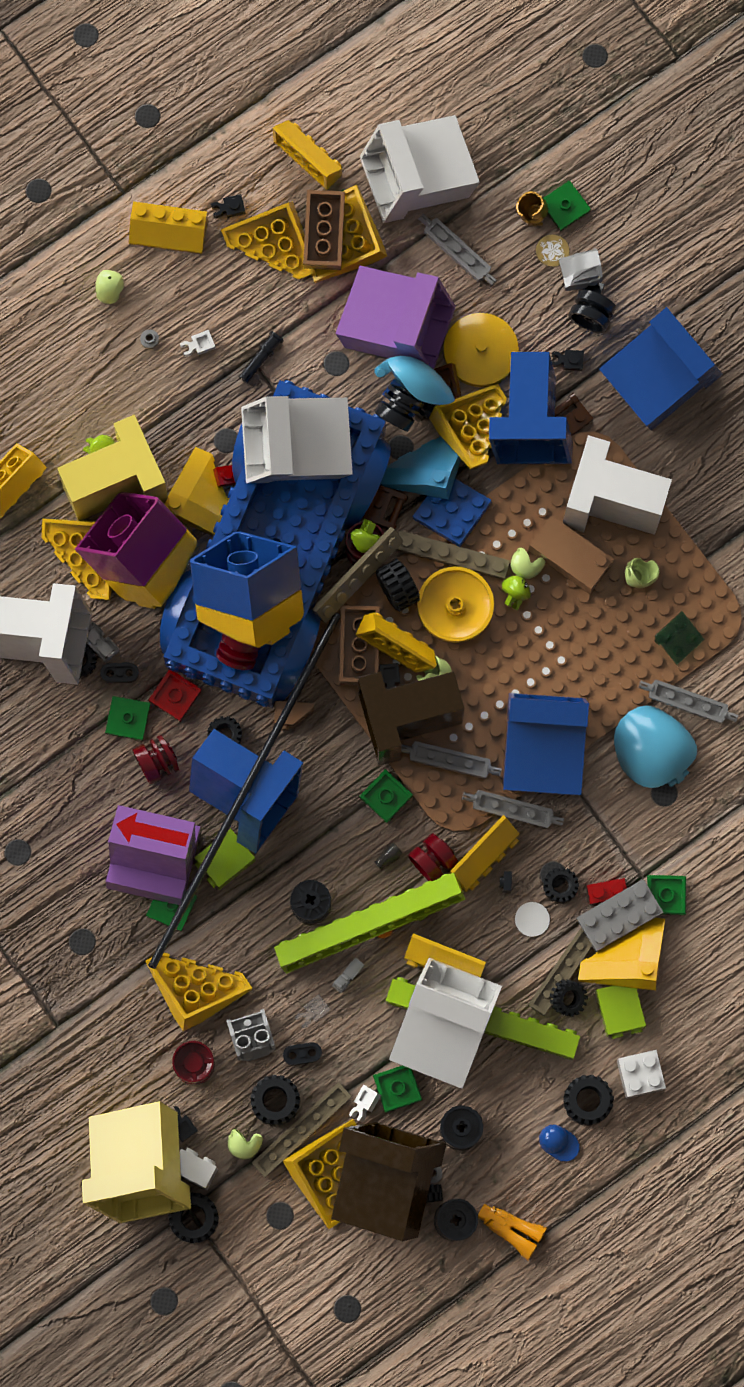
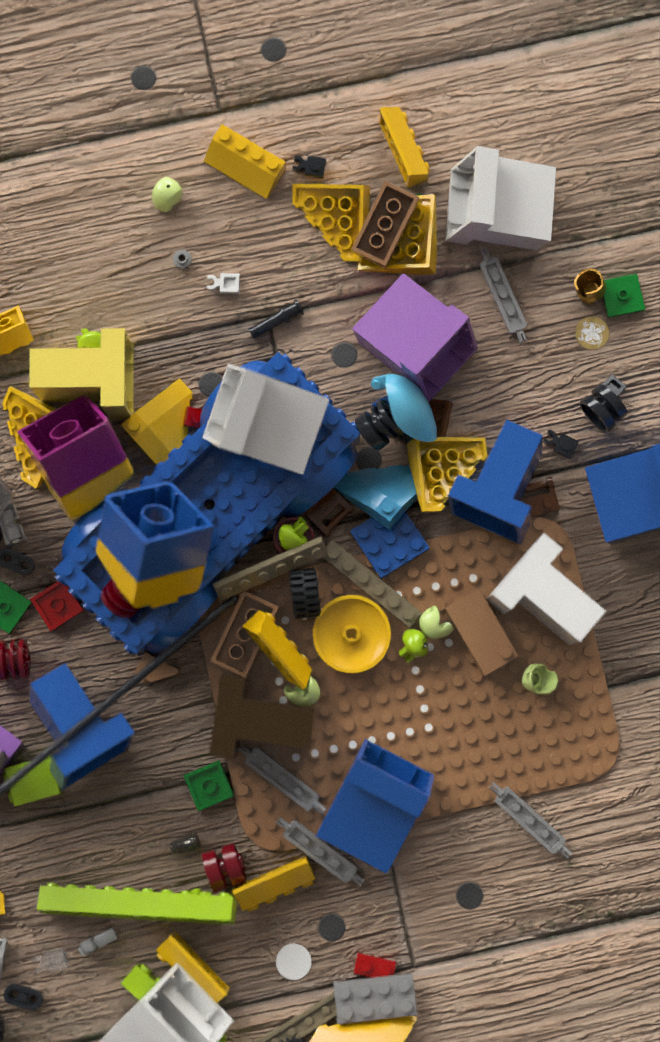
camera: 25 degrees right, 5 degrees up
(229, 723) = (74, 661): black tyre -> none
(310, 913) = (99, 848): black wheel -> none
(390, 674) = (261, 674): black plate -> none
(480, 349) = (483, 398): yellow dish -> none
(506, 882) = (283, 917): black plate -> none
(569, 877) = (328, 954): black tyre -> none
(581, 270) = (610, 363): light grey slope -> none
(653, 747) = (479, 849): medium azure piece -> none
(669, 893) = (431, 995): green plate -> none
(679, 637) = (548, 756): clear green hinge -> none

